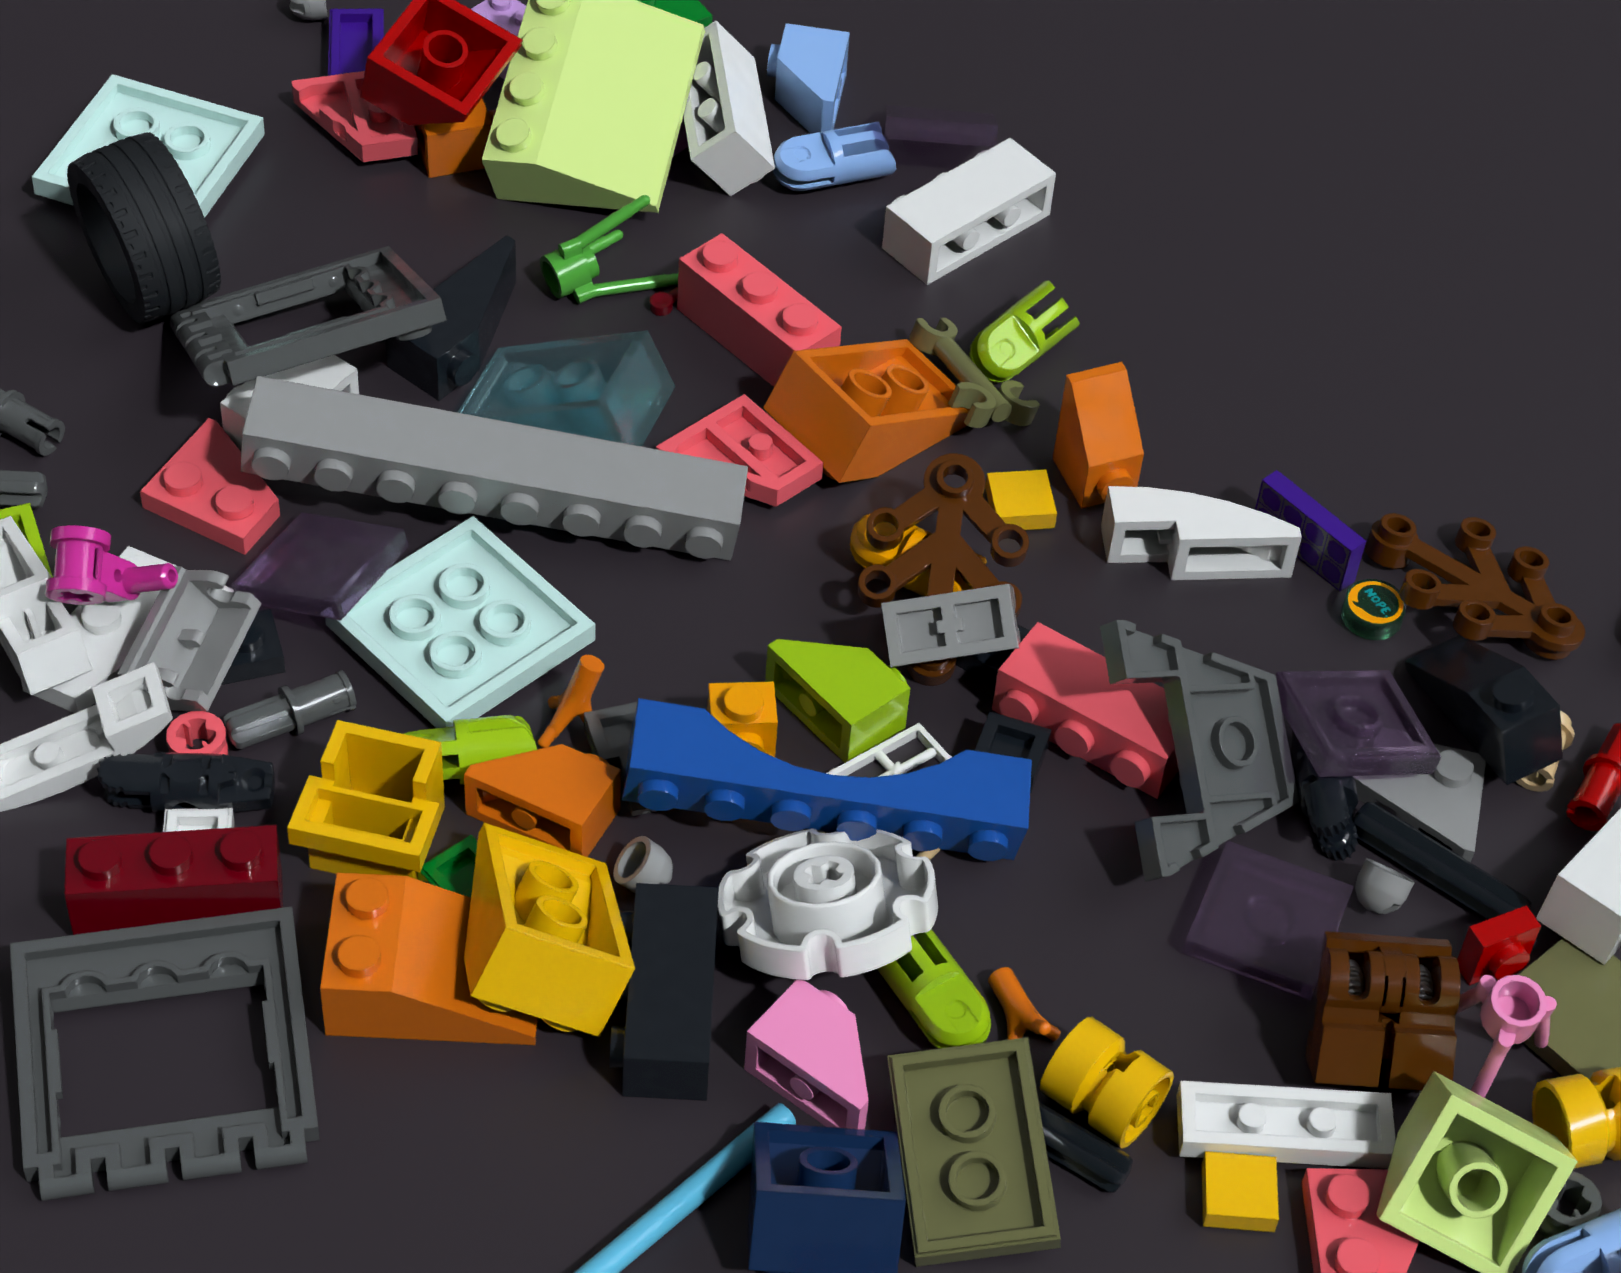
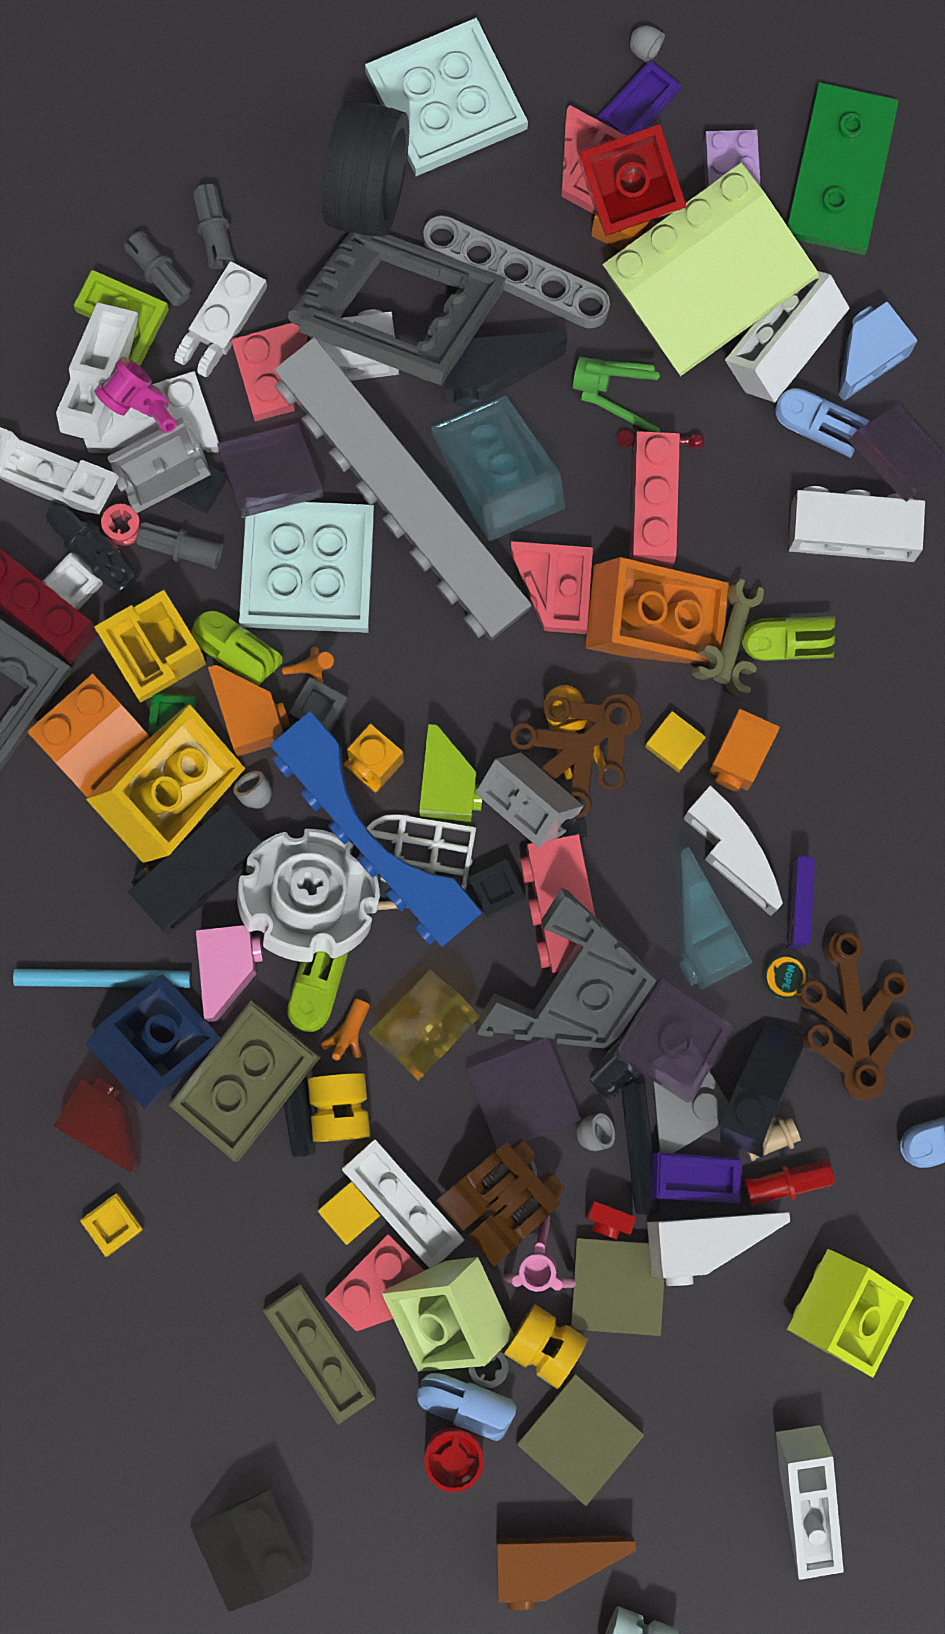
camera: 45 degrees right, 30 degrees up
(104, 478) = (222, 316): none -> white hinge
(410, 229) = (538, 272): none -> light grey beam
(1096, 922) = (424, 1024): none -> clear yellow brick
(1241, 613) = (706, 934): none -> clear light blue slope
(1526, 840) = (696, 1178): none -> dark purple tile

